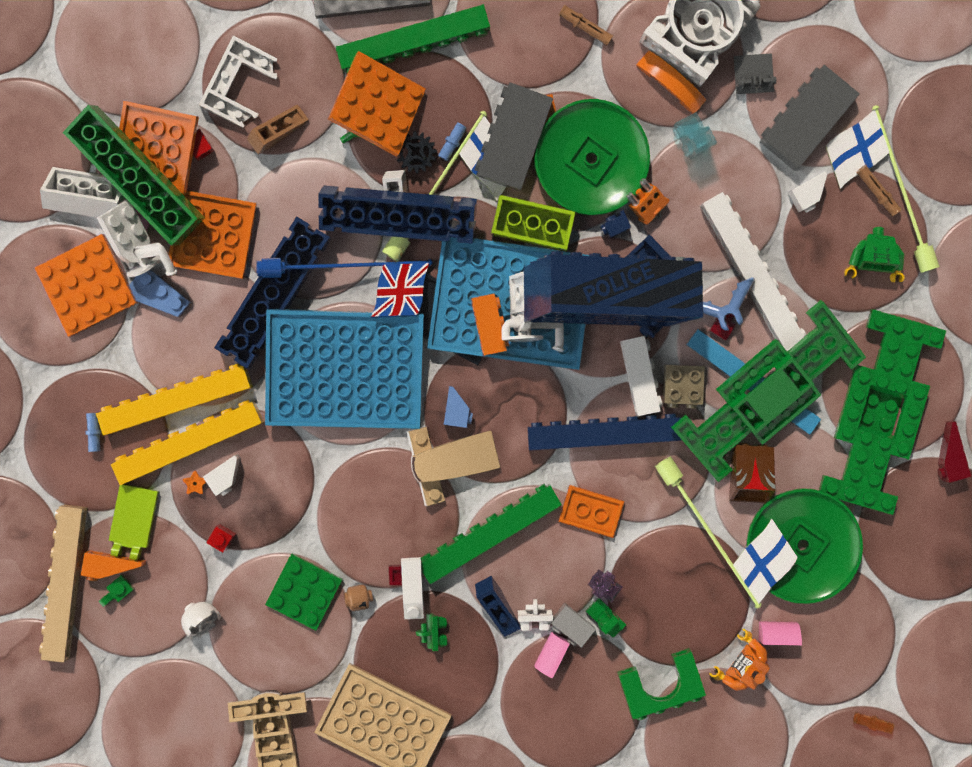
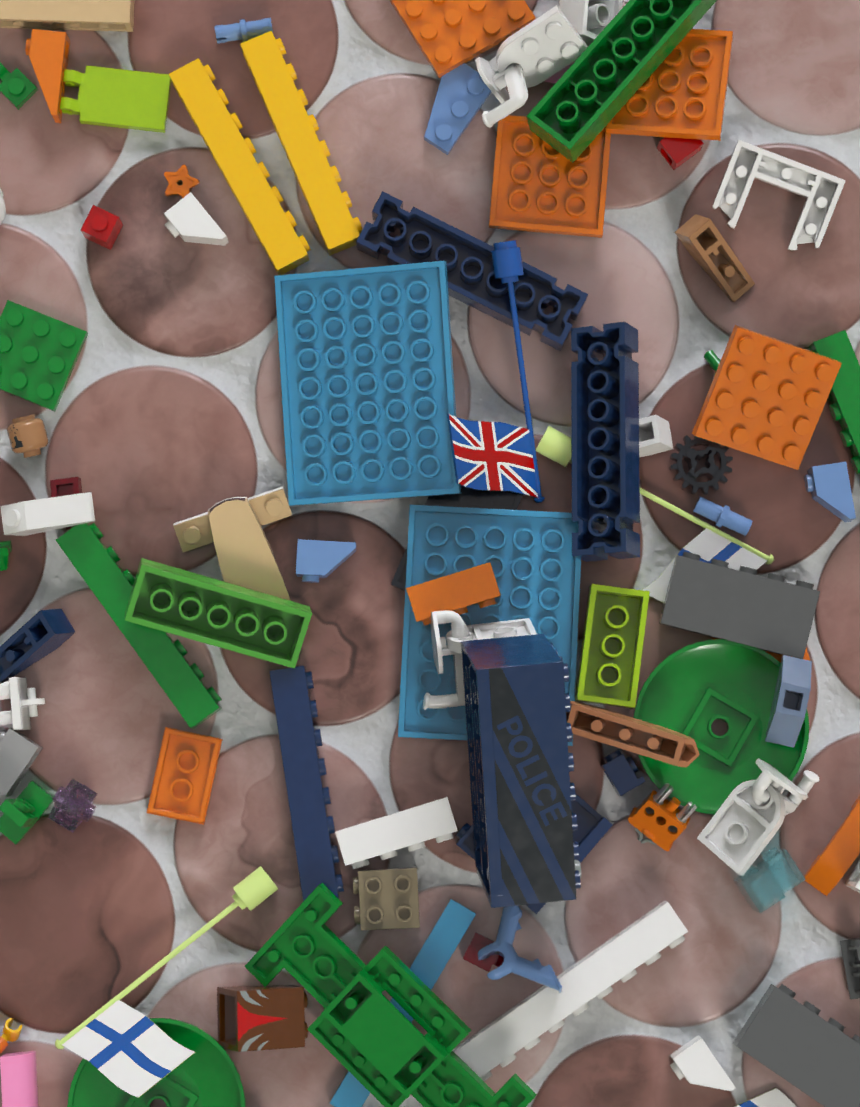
camera: 85 degrees right, 5 degrees down
(440, 67) = (832, 489): none -> medium blue slope
(489, 481) = (218, 613): none -> bright green brick
(580, 109) = (789, 701): none -> sand blue slope
(593, 214) = (632, 734): none -> nougat brick
(653, 141) = (753, 816): none -> white plate

